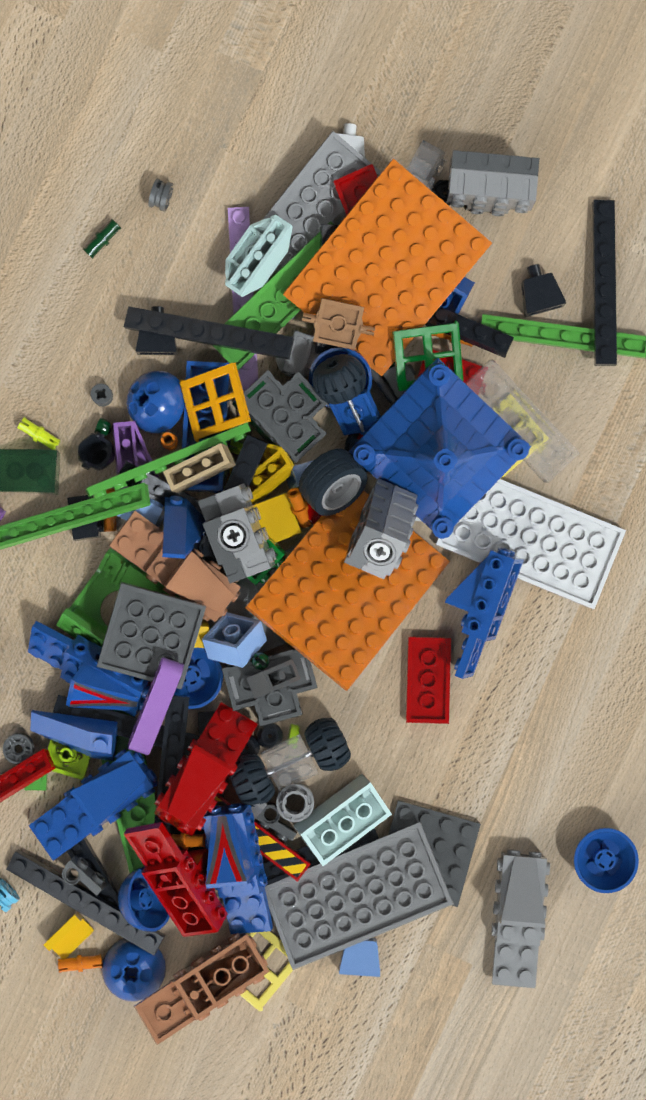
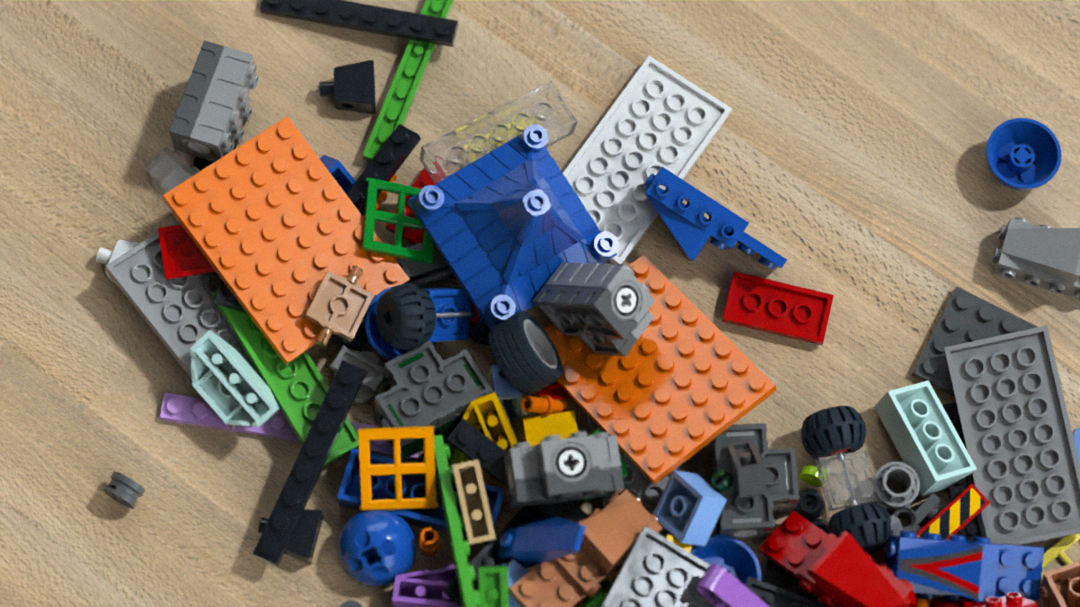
camera: 80 degrees left, 15 degrees down
(102, 238) = (157, 574): dark green pin -> none

